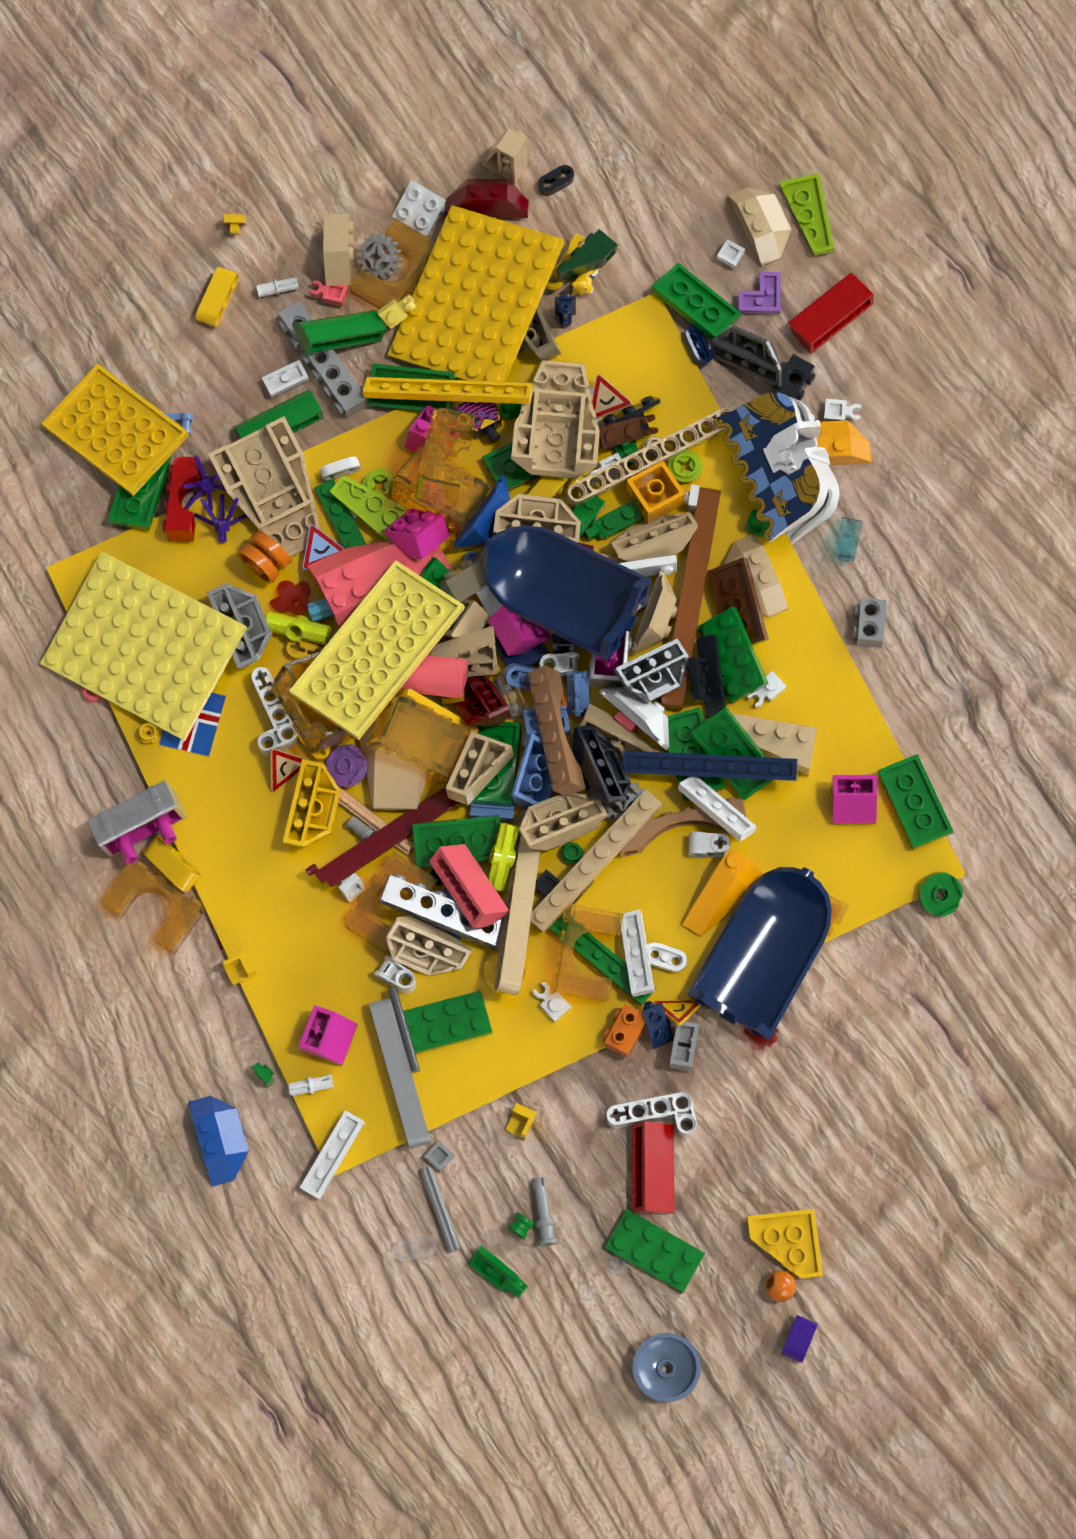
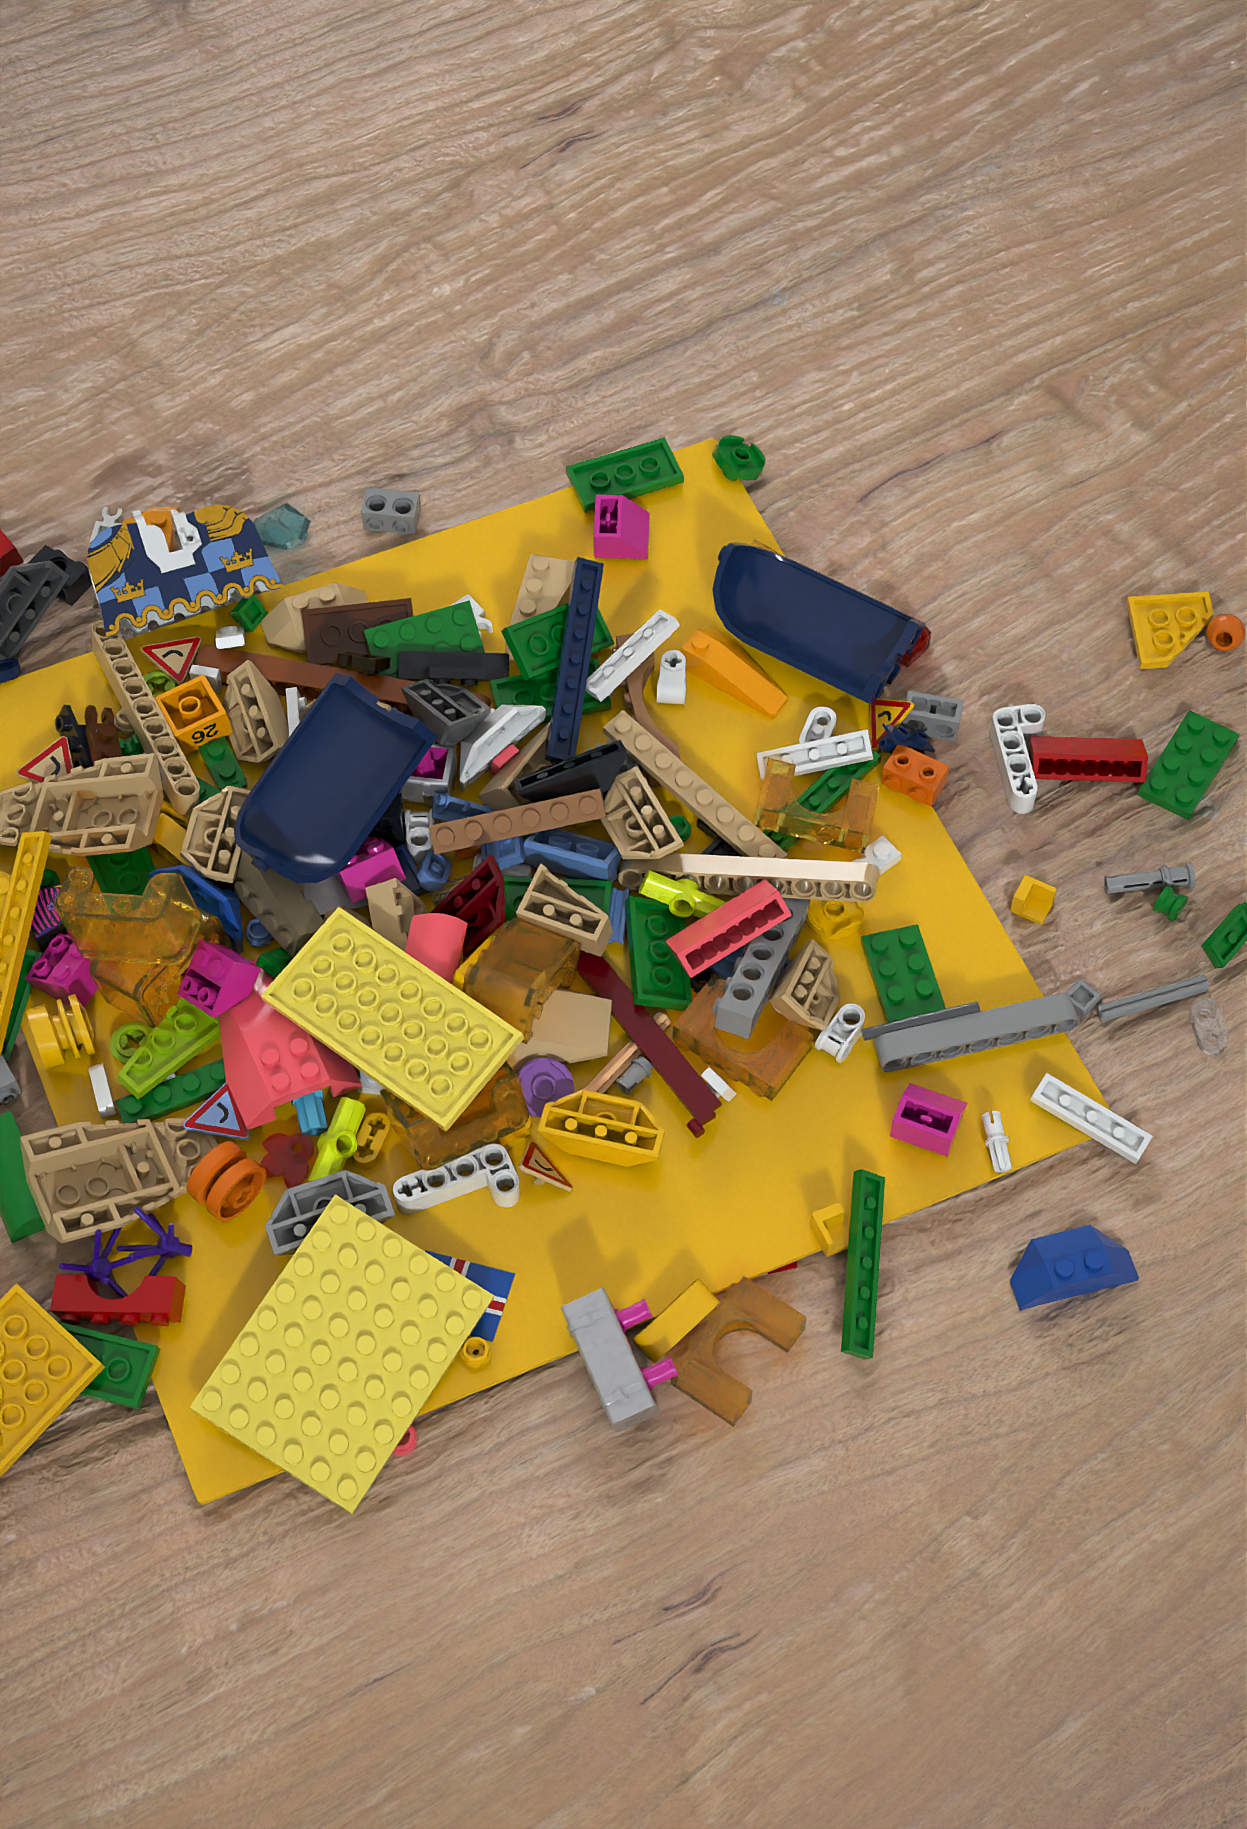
camera: 90 degrees left, 15 degrees down
(215, 990) = (863, 1264): none -> green plate
(264, 1073) = (980, 1205): green plate -> none
(378, 433) = (61, 1031): none -> yellow wheel
(704, 611) = (369, 663): none -> dark brown plate
(712, 473) = (174, 656): none -> piece
(728, 511) = (230, 637): none -> white plate

